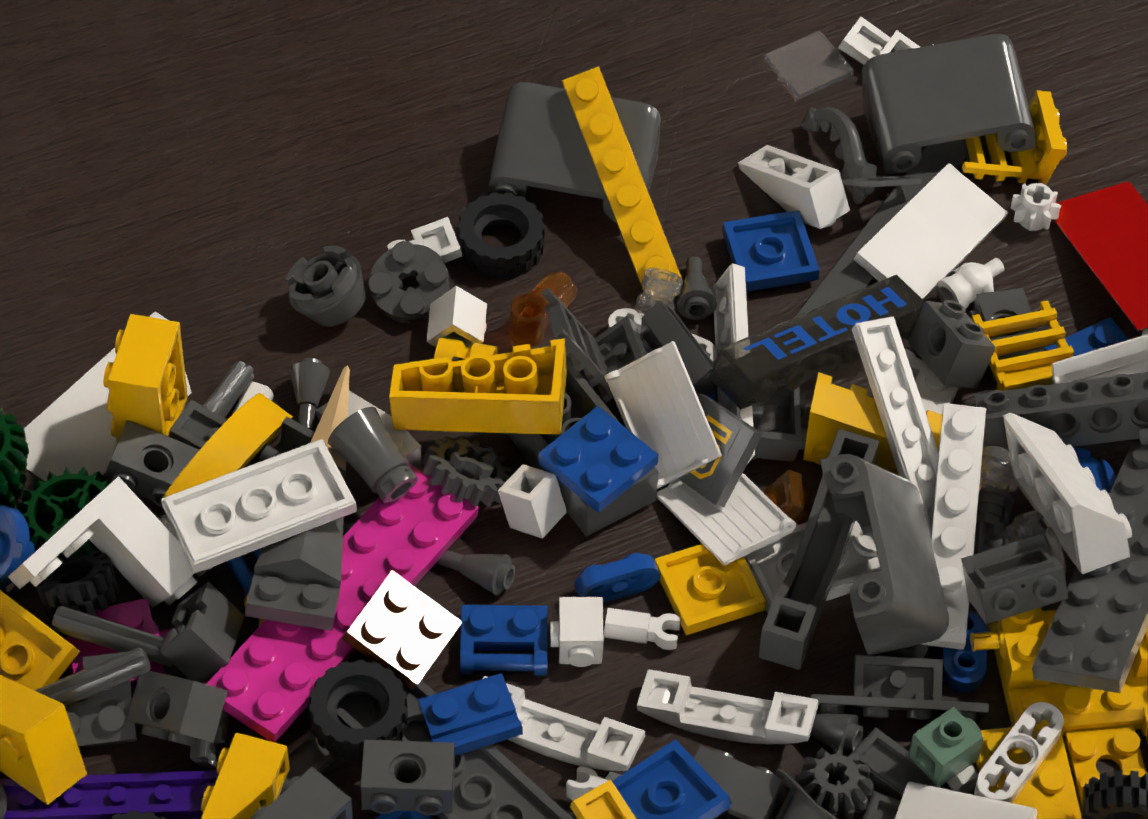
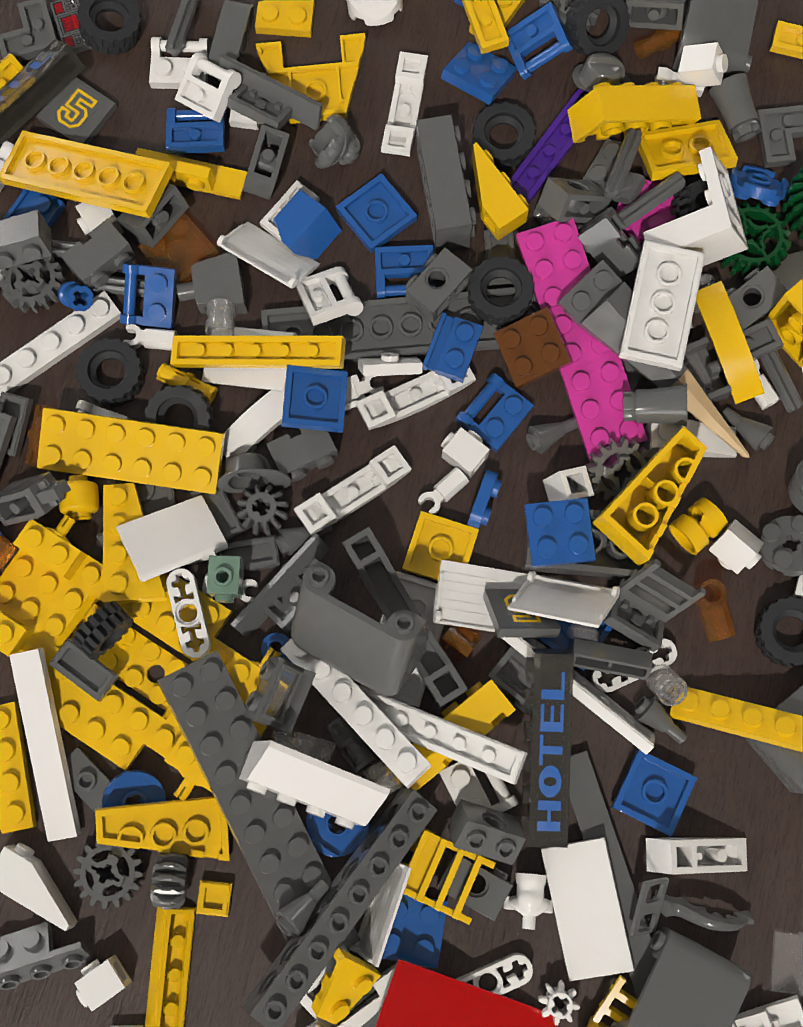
camera: 135 degrees right, 25 degrees up
(549, 768) = (390, 364): none -> white plate
(1047, 272) = (506, 963): none -> white beam

